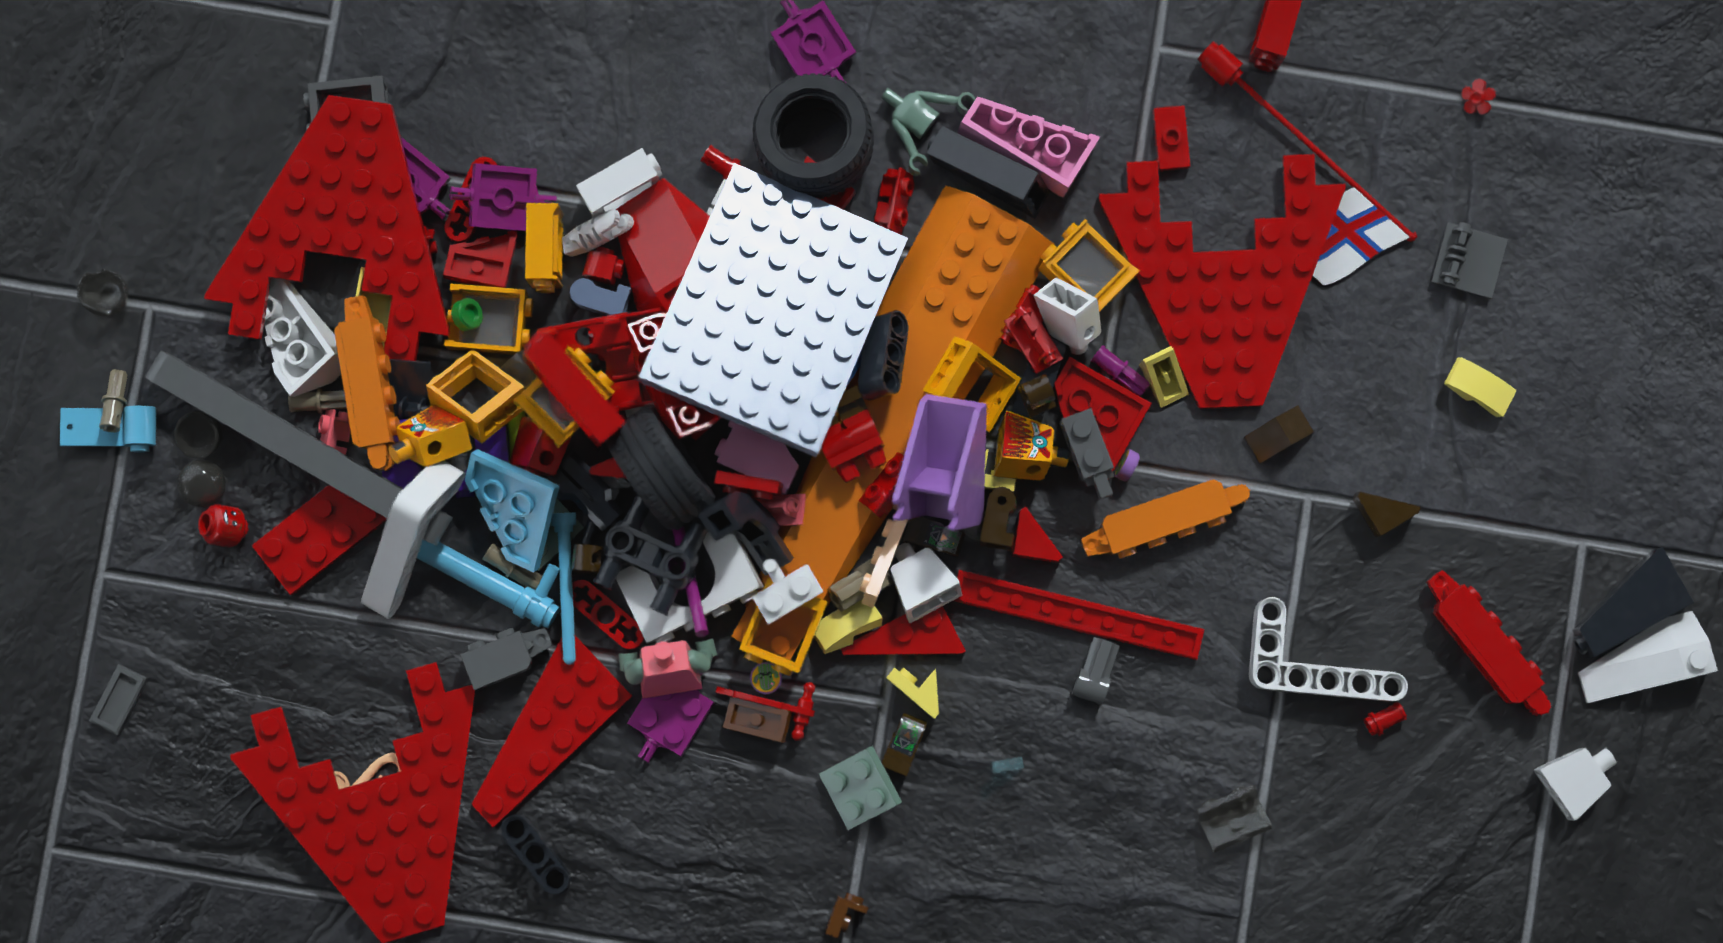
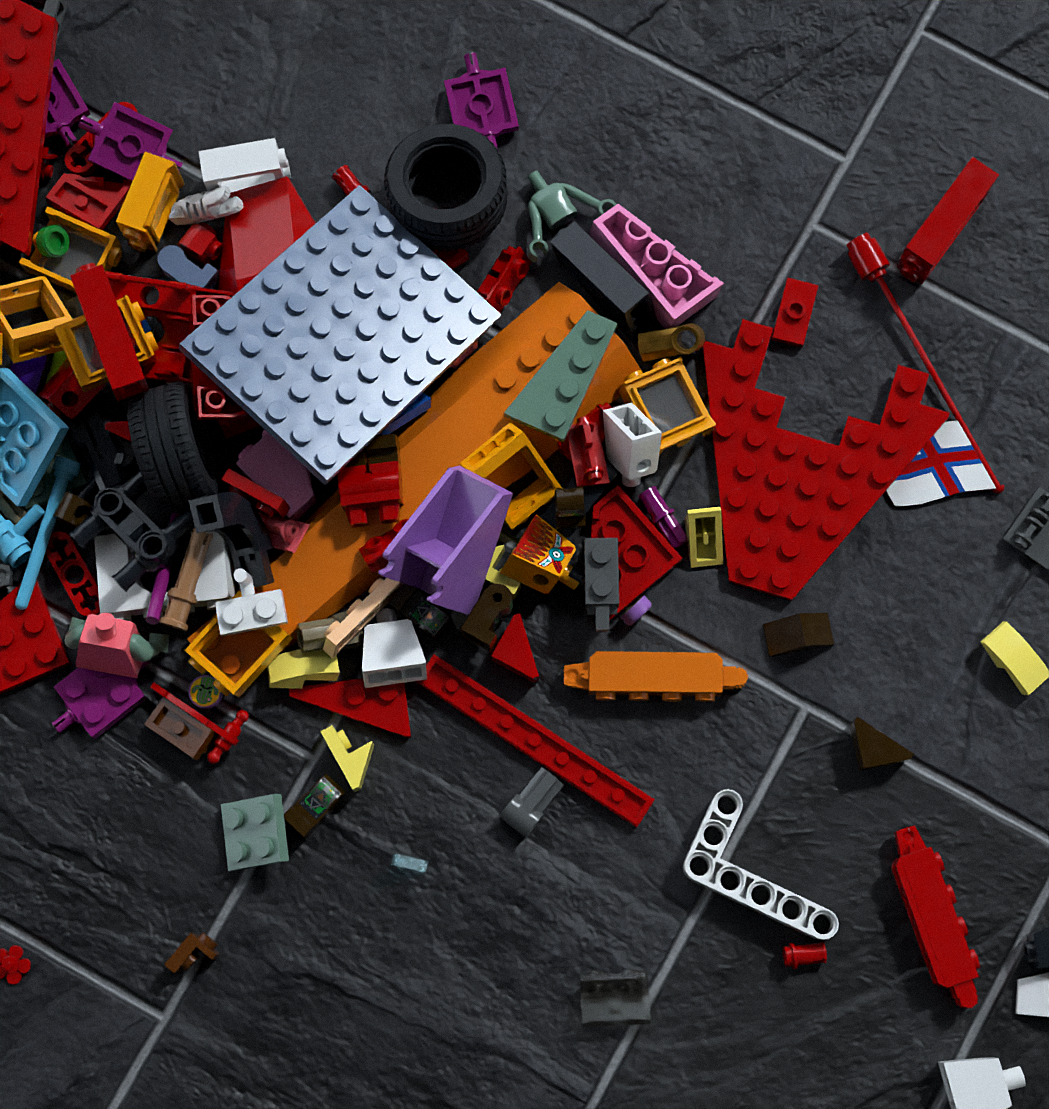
camera: 25 degrees right, 5 degrees down
(719, 601) = (182, 595): none -> medium nougat pin
(883, 356) = (432, 416): black beam -> none
(988, 285) = (560, 385): none -> sand green wing
(1067, 208) = (668, 342): none -> pearl gold piece

